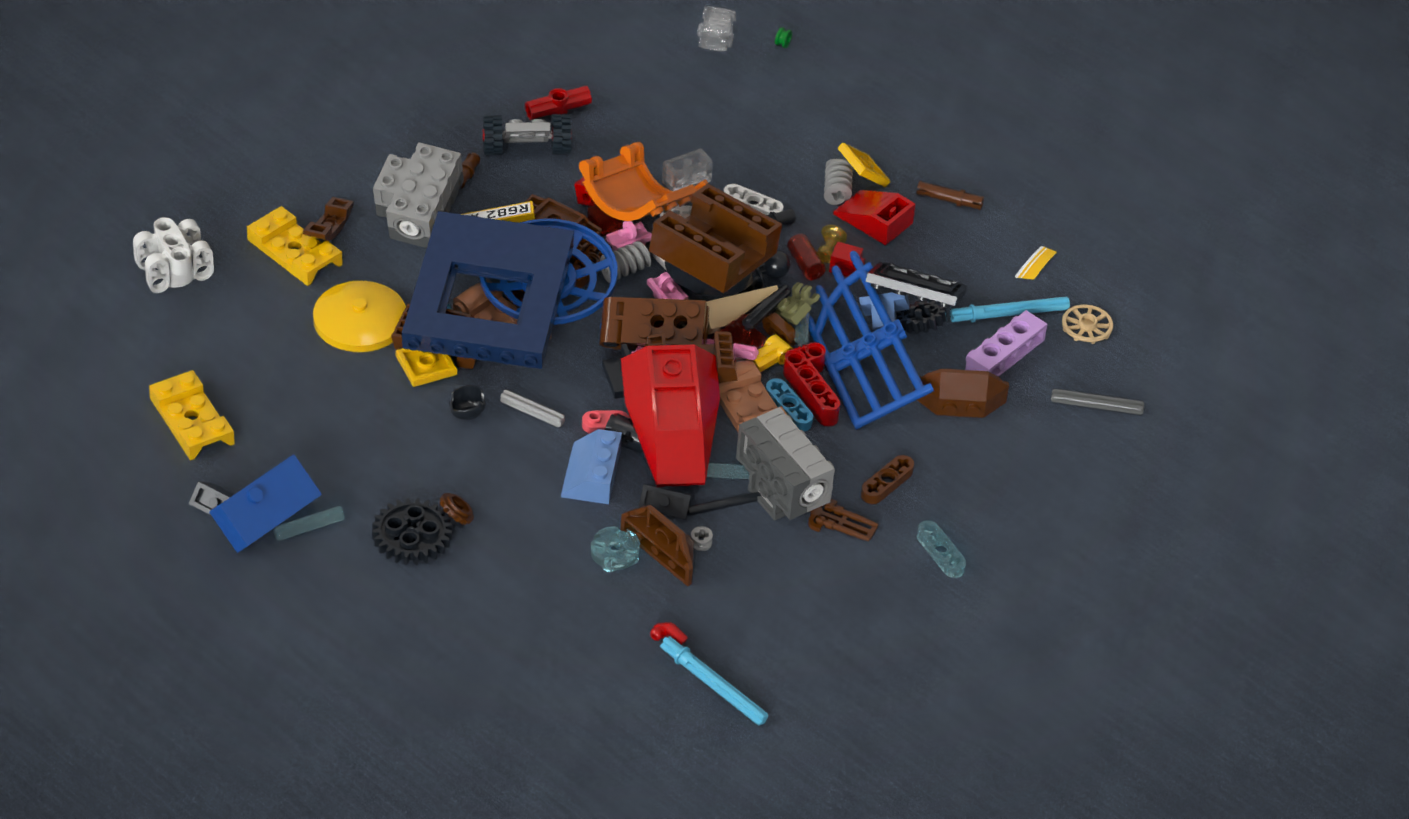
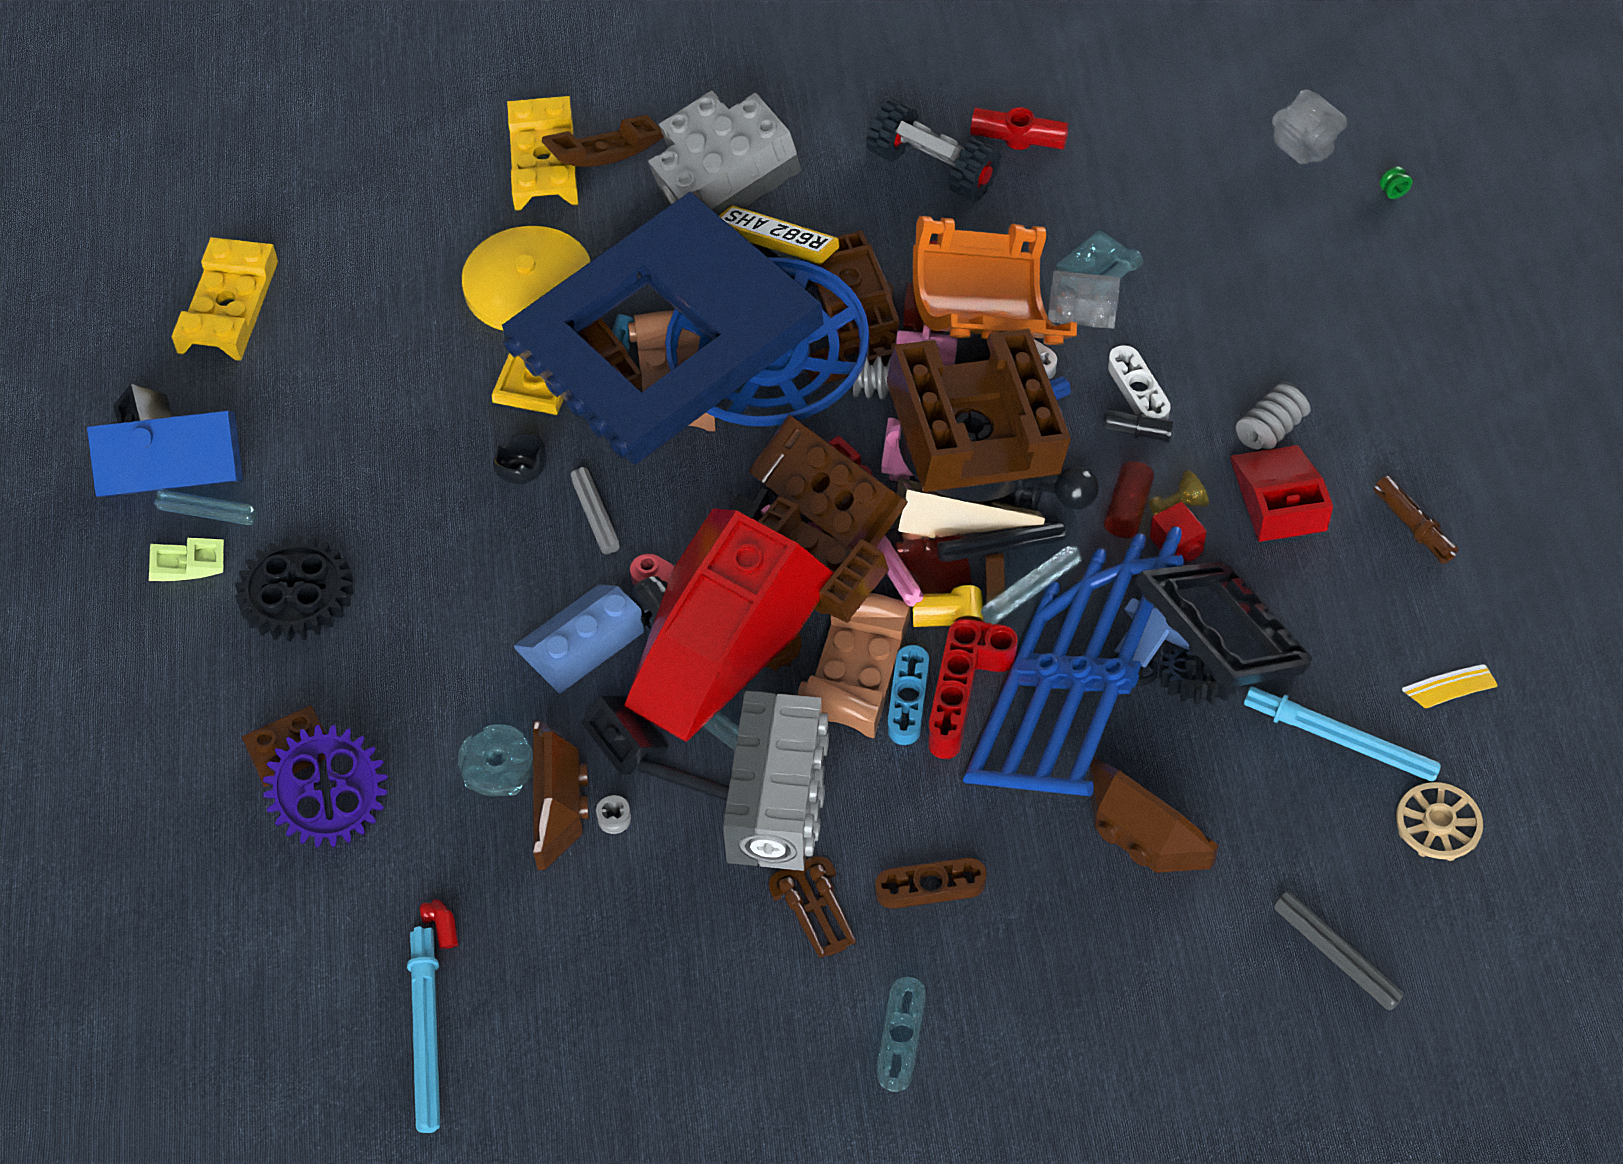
camera: 45 degrees right, 10 degrees up
(173, 254) = (390, 93): white piece -> none
(330, 554) = (179, 562): none -> yellowish green slope
(457, 508) = (378, 583): reddish brown gear -> none
(469, 166) = (827, 159): reddish brown pin -> none
(499, 602) = (264, 741): none -> reddish brown brick
(556, 604) = (290, 791): none -> dark purple gear
(664, 148) = (1098, 254): none -> clear light blue plate
(796, 307) = (1033, 561): olive plate -> none
(864, 164) = (1327, 412): yellow plate -> none
(1008, 345) = (1262, 801): lavender brick -> none

